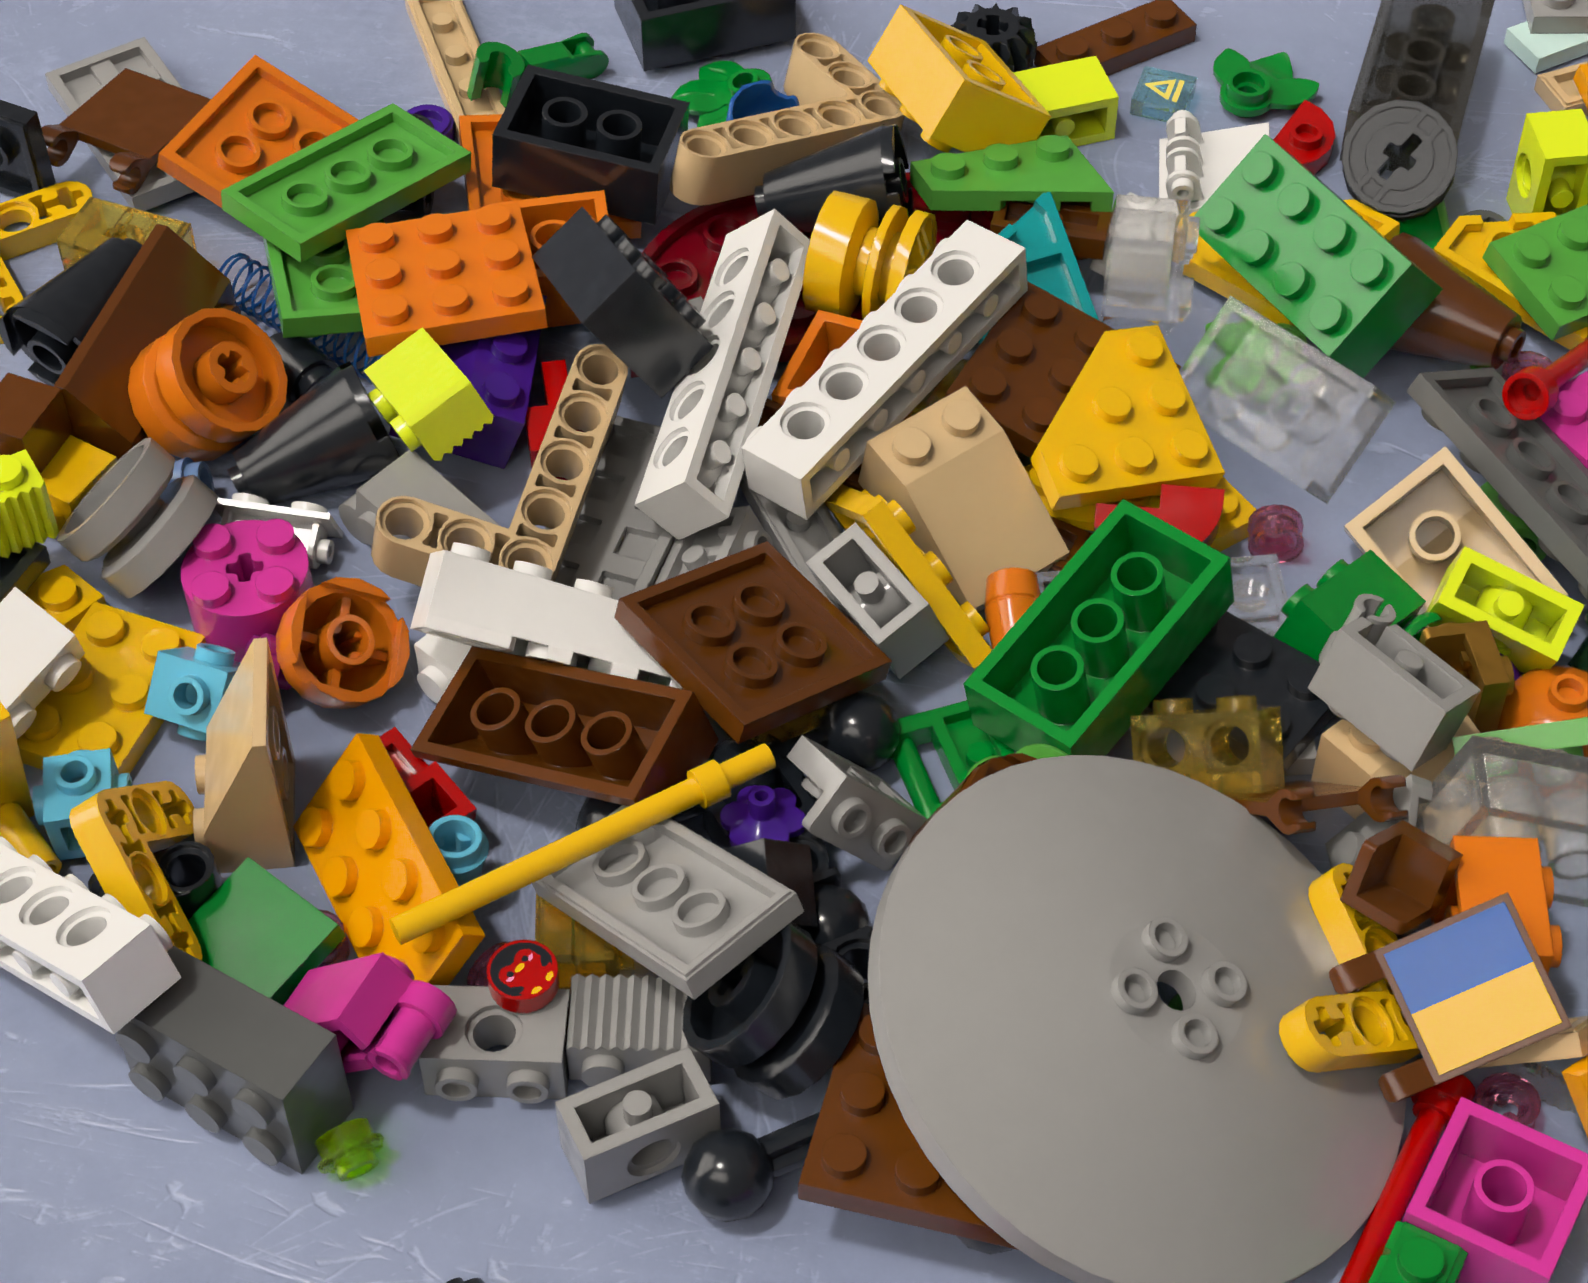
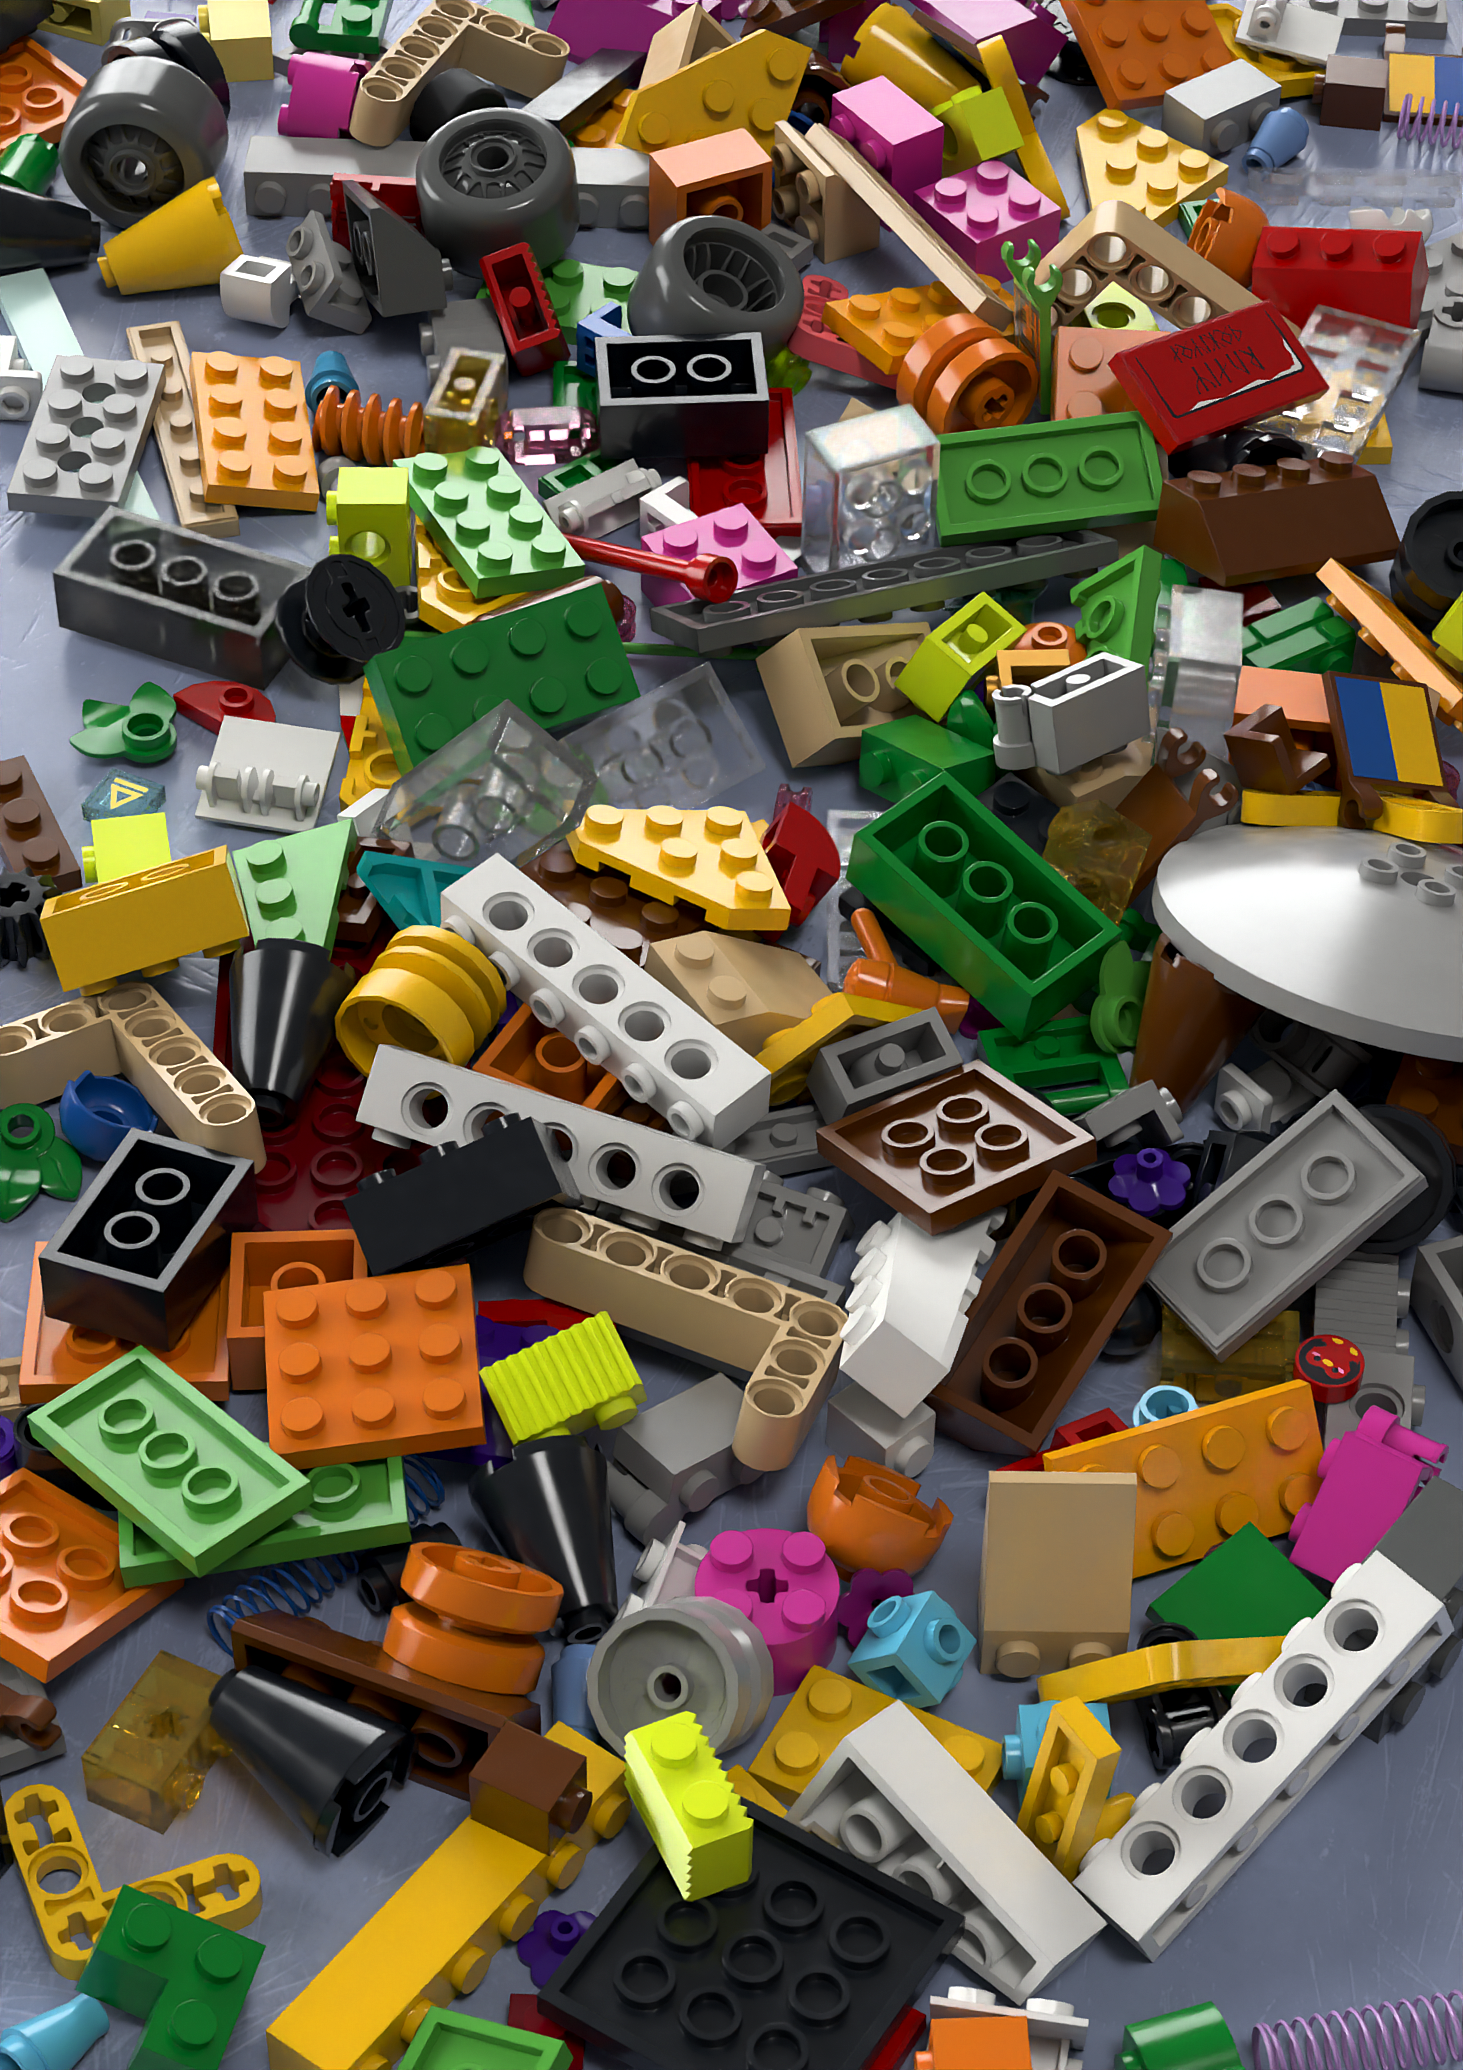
camera: 85 degrees left, 5 degrees down
(704, 786) = (1155, 1187): yellow bar -> none

